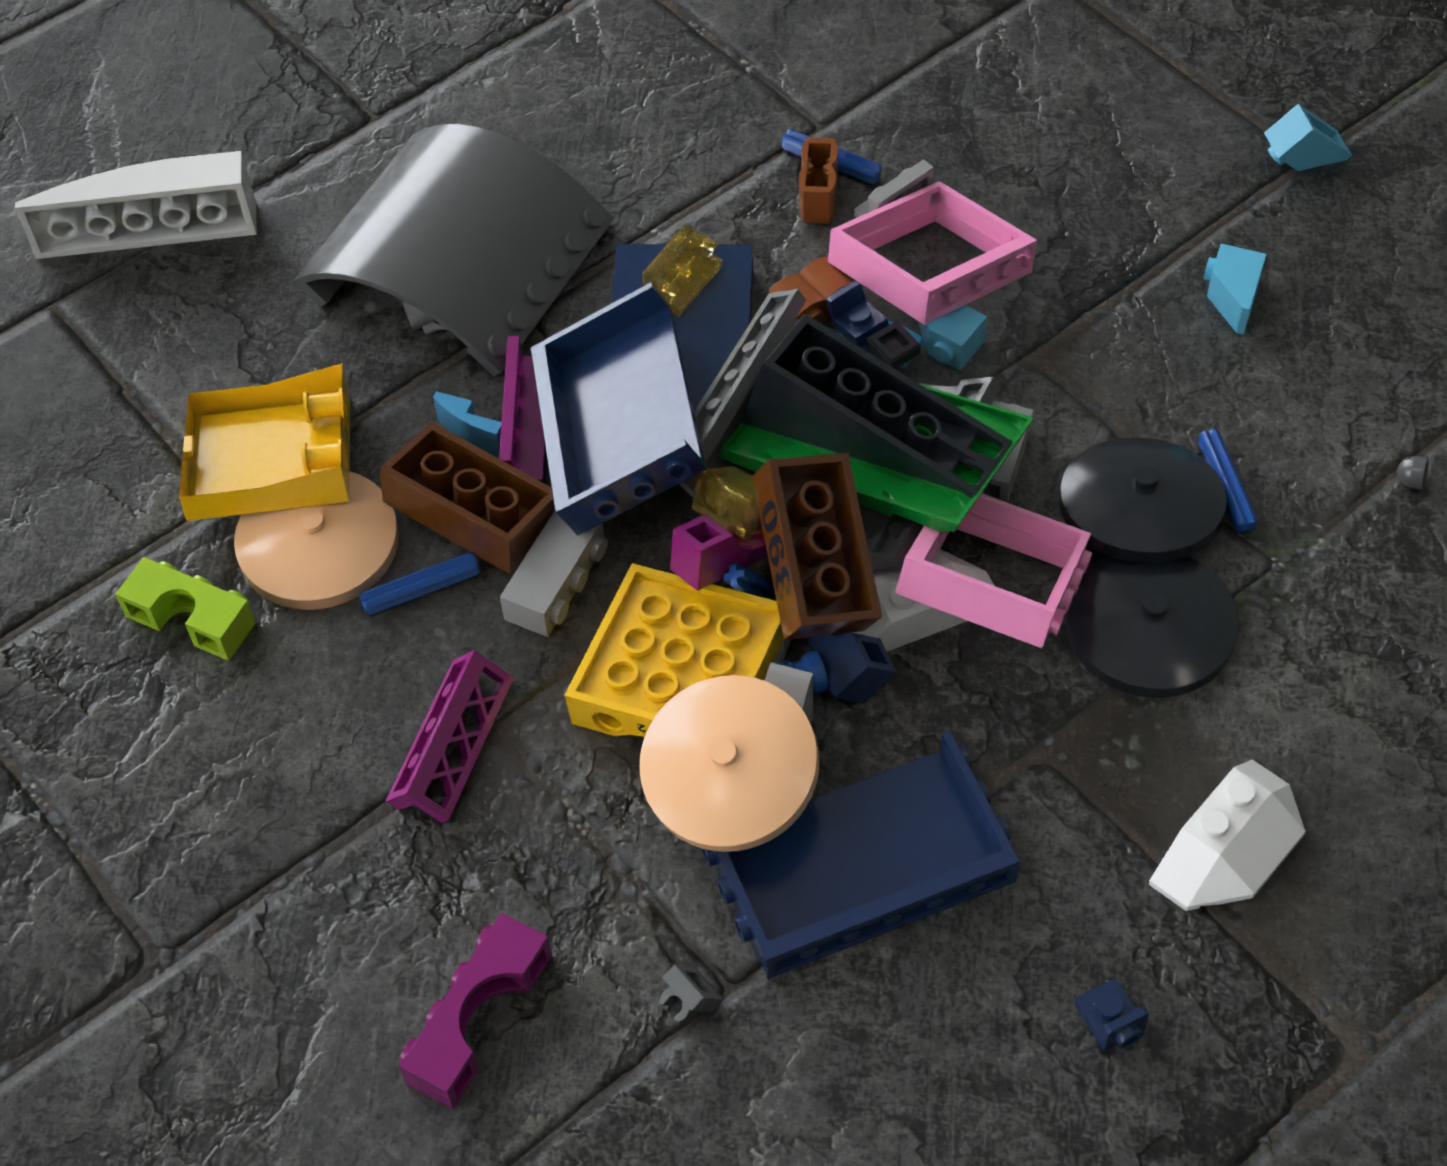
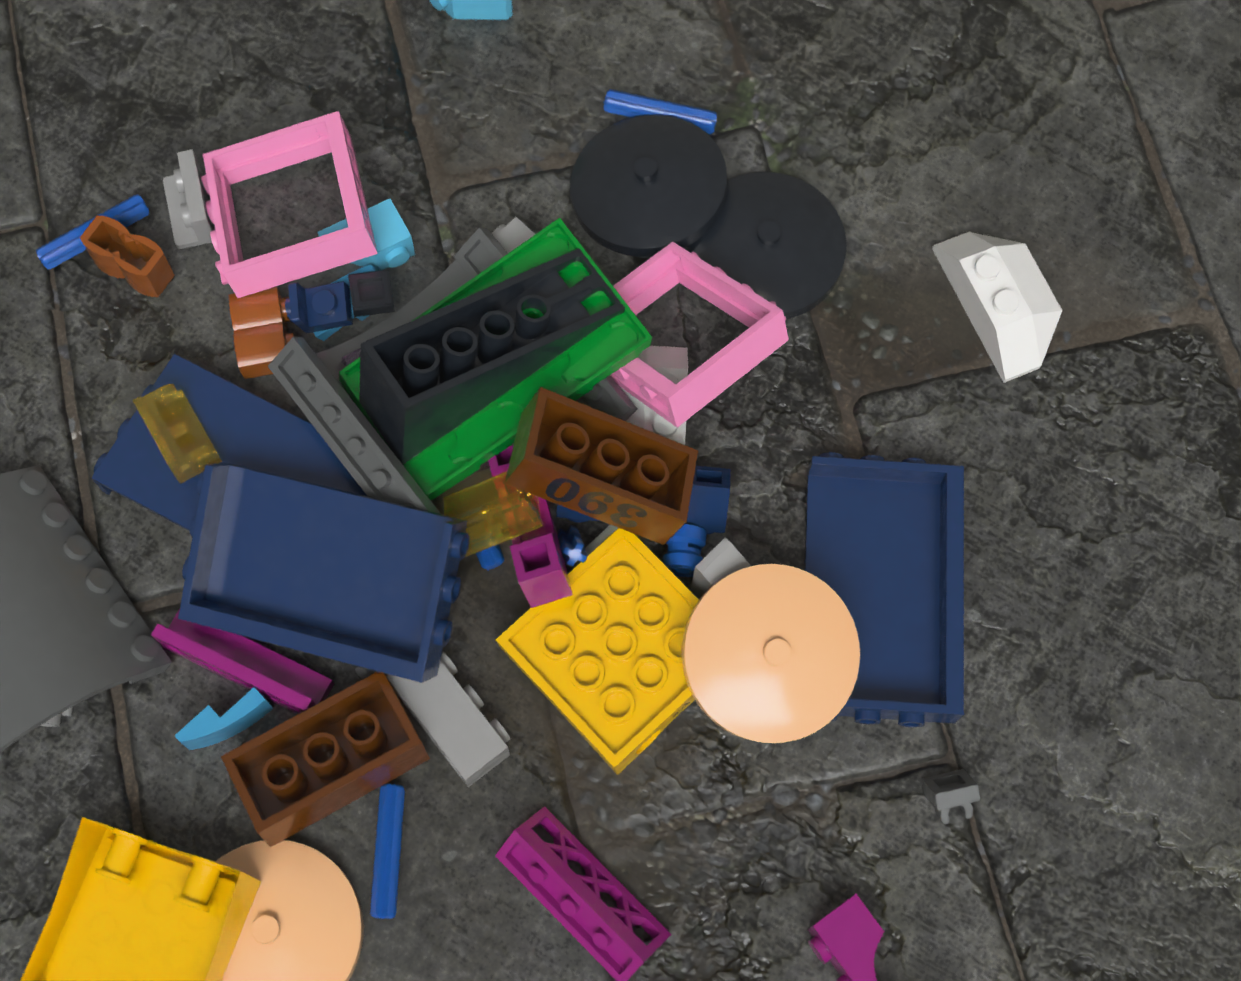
camera: 70 degrees left, 15 degrees up
(1112, 1015) = (1114, 471): dark blue bracket -> none

